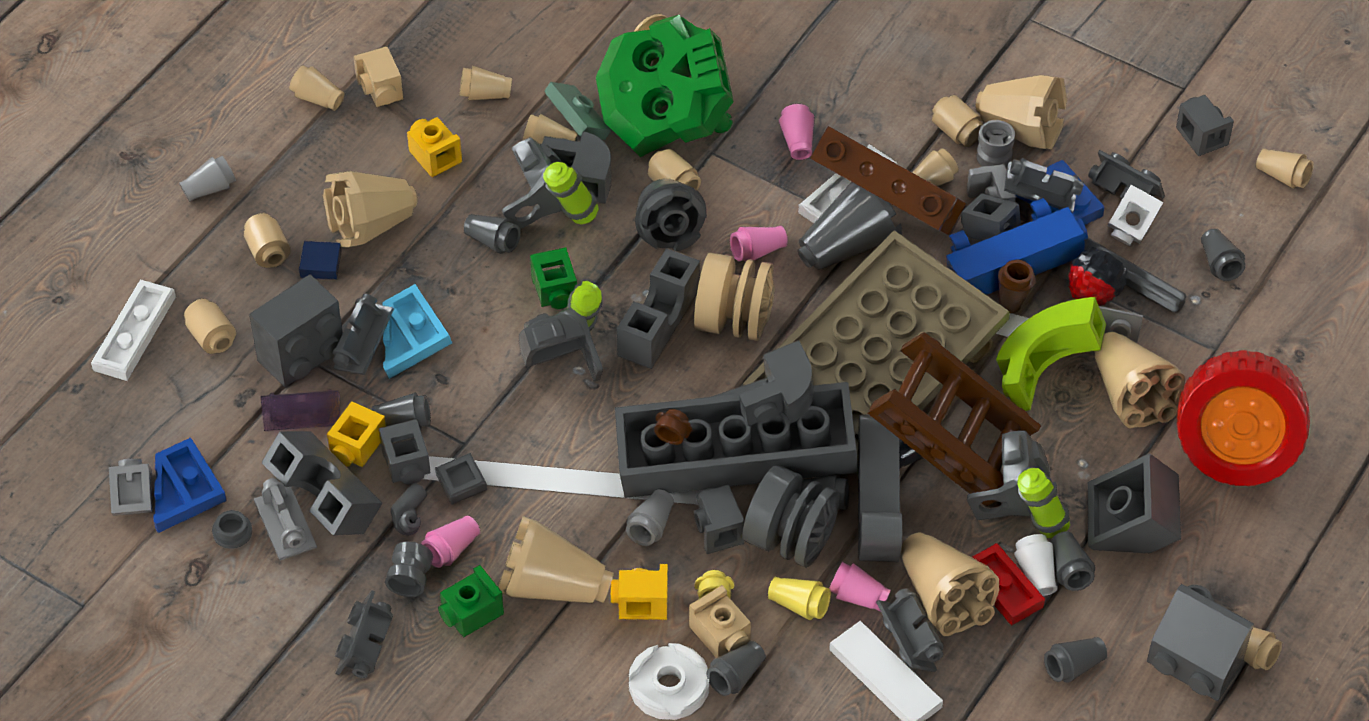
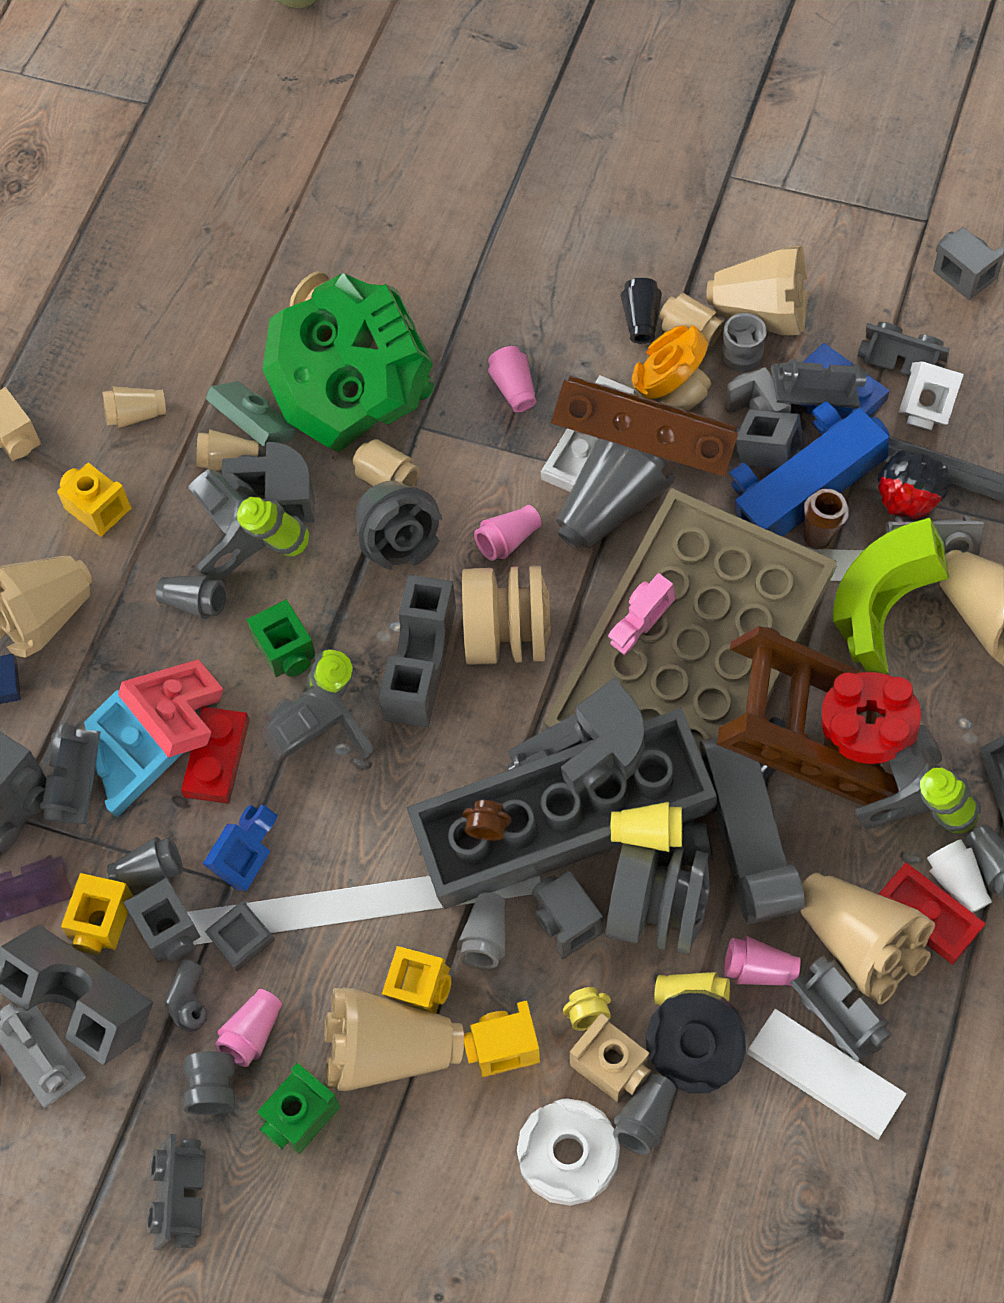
camera: 10 degrees left, 10 degrees up
(454, 302) = (167, 702): none -> coral plate
(477, 417) = (239, 849): none -> blue plate
(478, 350) = (214, 767): none -> red plate
(597, 536) = (425, 982): none -> yellow brick
(791, 624) = (697, 1040): none -> black tile
(797, 457) = (648, 826): none -> light yellow cone
(846, 312) = (647, 606): none -> bright pink plate
(920, 100) = (641, 308): none -> black cone
(928, 143) = (670, 361): none -> light orange tile
(986, 405) = (871, 692): none -> red plate

